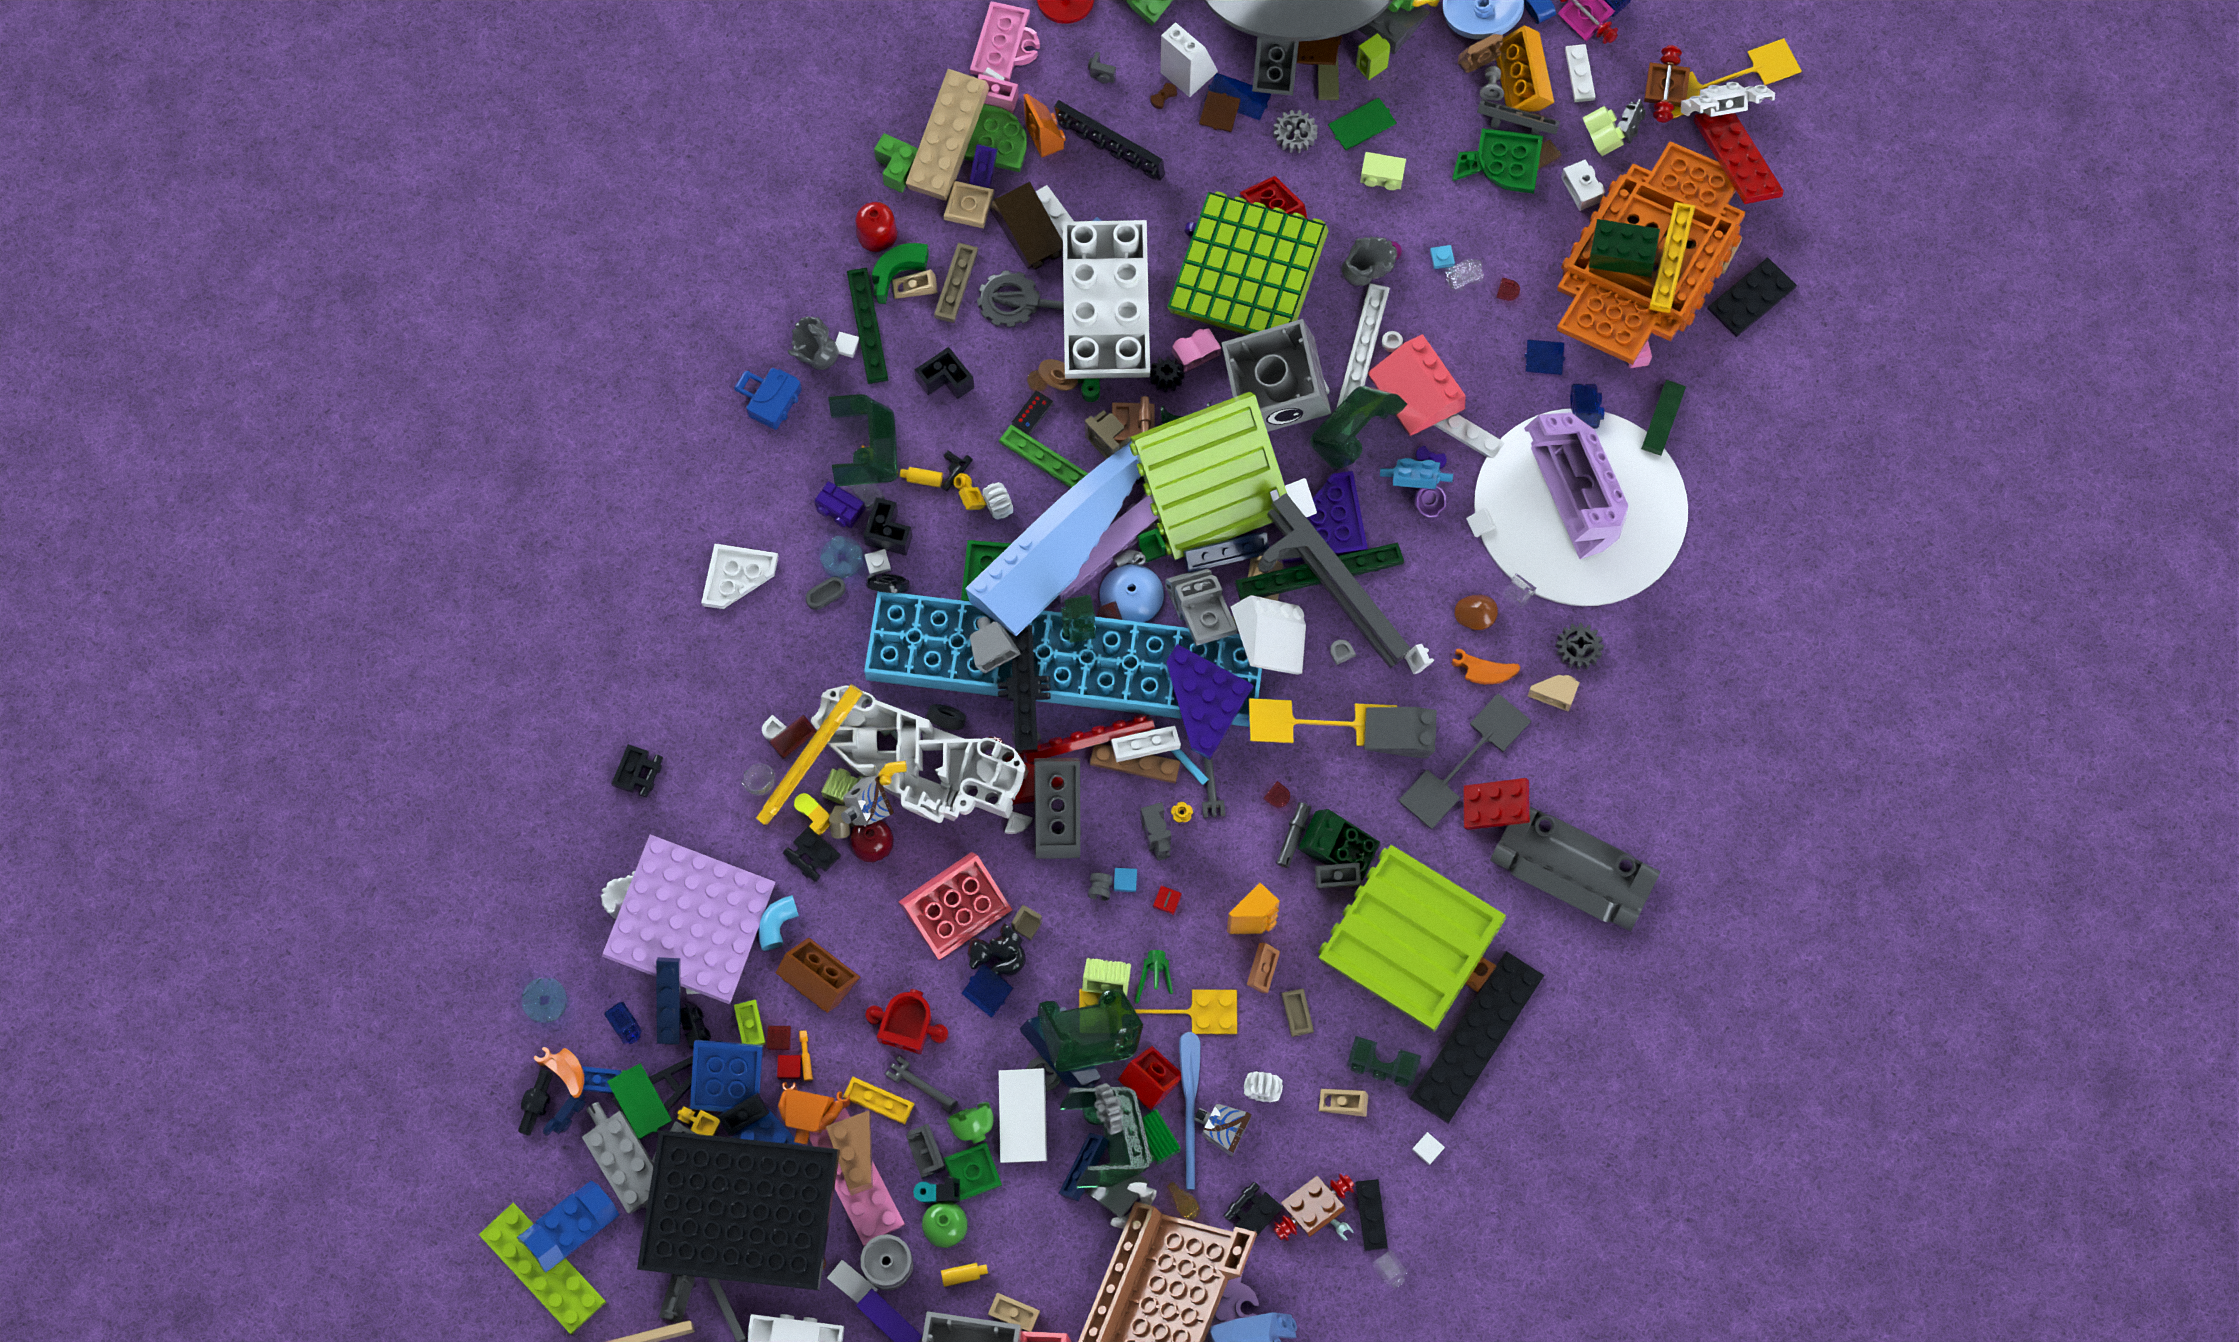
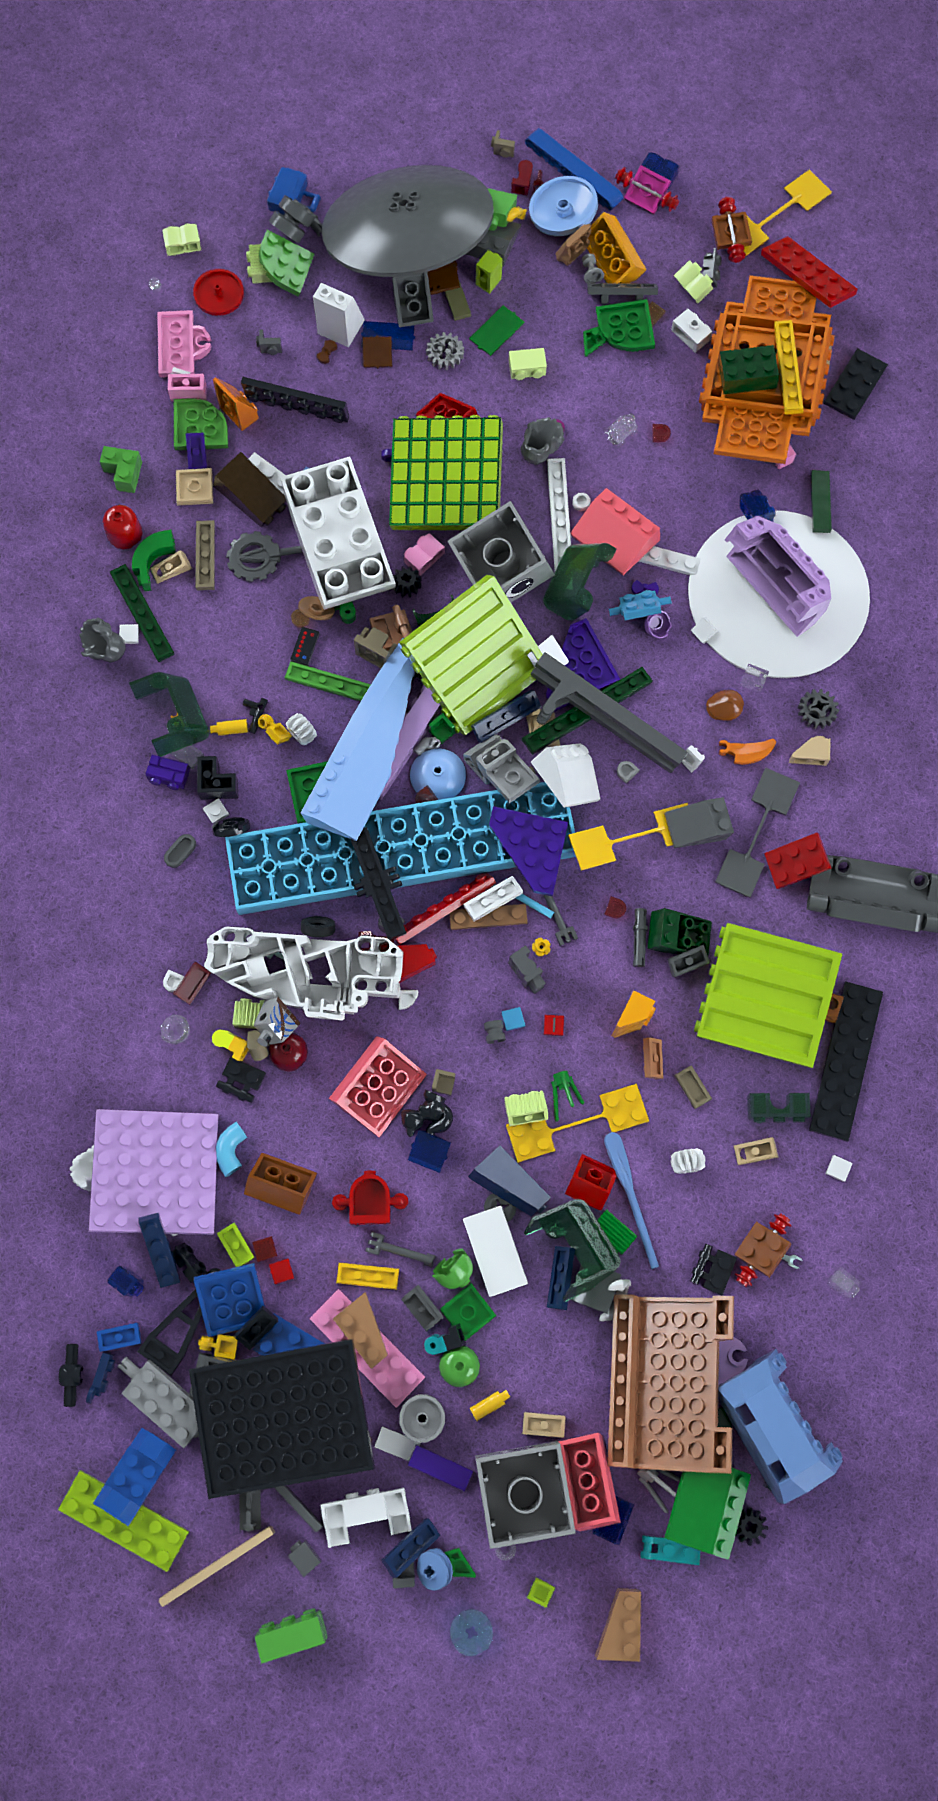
camera: 20 degrees left, 5 degrees up
(557, 1001) = (39, 1286): clear light blue plate -> none
(566, 1067) = (88, 1336): orange piece -> none
(631, 767) = (60, 1054): black plate -> none
(639, 1101) = (162, 1345): green piece -> none
(736, 573) = (97, 857): white plate -> none
(772, 398) = (80, 698): blue piece -> none
(805, 1057) = (293, 1258): light orange piece -> none
(809, 754) = (213, 995): yellow piece -> none
(809, 1111) = (312, 1307): orange torso -> none
(836, 547) = (178, 807): clear light blue plate -> none
(889, 770) = (286, 988): yellow arm -> none
(944, 370) = (221, 631): black brick -> none
(947, 135) = (158, 432): tan brick -> none
(991, 645) = (338, 854): light grey torso -> none
(1066, 841) = (454, 1001): dark grey hinge -> none
(1078, 618) = (406, 810): clear green arch -> none
(1091, 1033) = (530, 1161): clear green windscreen -> none
(1108, 1108) = (570, 1225): light grey gear -> none
(1184, 1202) = (654, 1280): clear yellow piece -> none
(1223, 1126) = (666, 1205): torso -> none
(1371, 1215) = (811, 1240): black plate -> none
(1442, 257) = (598, 421): medium azure plate -> none
(1544, 357) = (708, 479): clear blue piece -> none
(1580, 73) = (657, 241): white plate -> none
(1725, 99) = (783, 228): white bracket -> none

